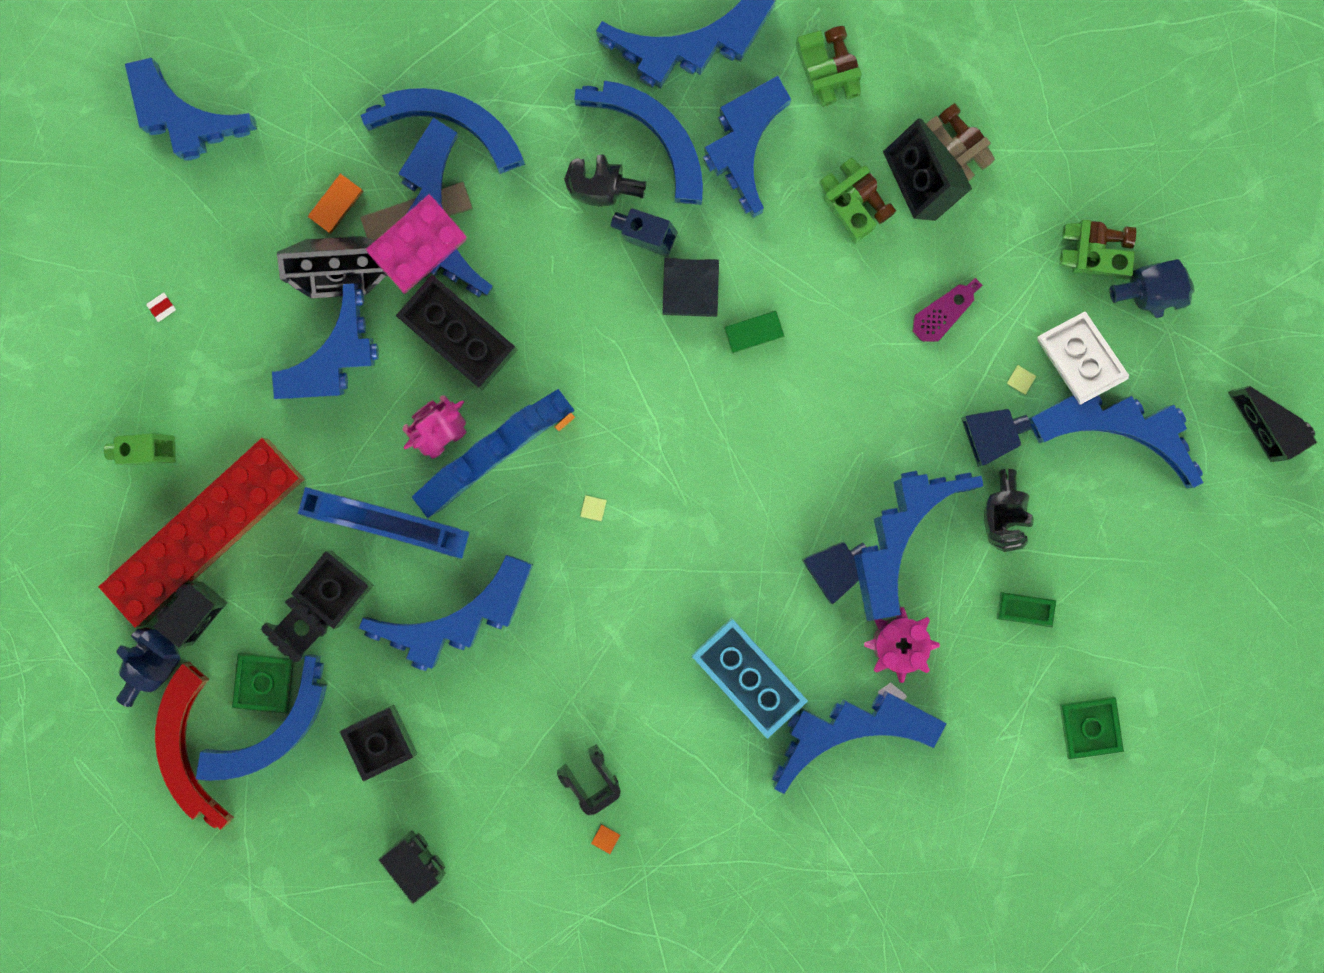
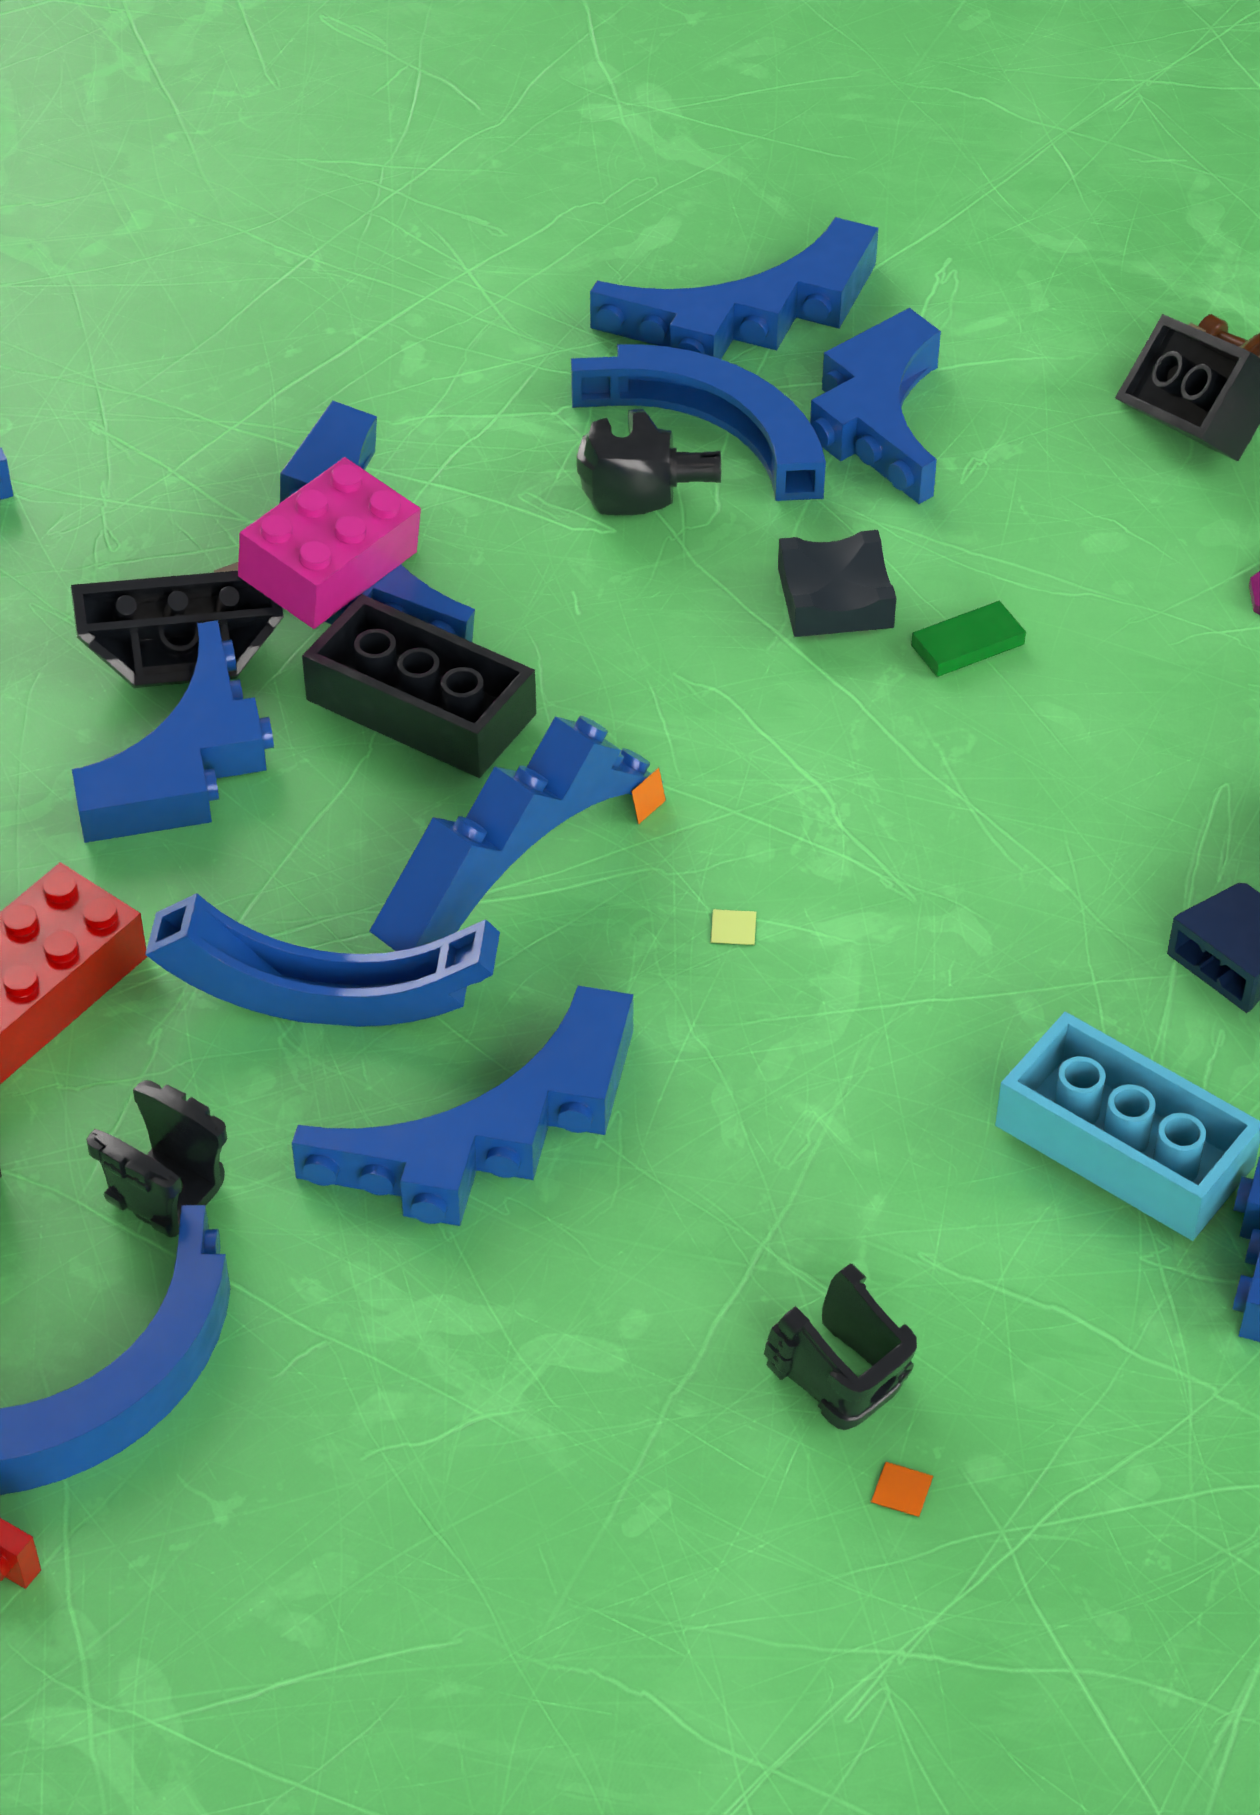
camera: 10 degrees left, 40 degrees down
(262, 683) = (87, 1298): green tile -> none
(332, 589) = (243, 1081): black brick -> none
(335, 203) = (171, 553): orange tile -> none
(378, 743) = (361, 1345): black brick -> none
(413, 866) = (476, 1563): black brick -> none
(435, 427) = (398, 808): dark pink brick -> none
(453, 108) = (405, 430): blue arch -> none
(655, 235) = (738, 515): dark blue torso -> none
(832, 73) = (986, 303): bright green hips -> none
(848, 196) = (1092, 449): bright green hips -> none

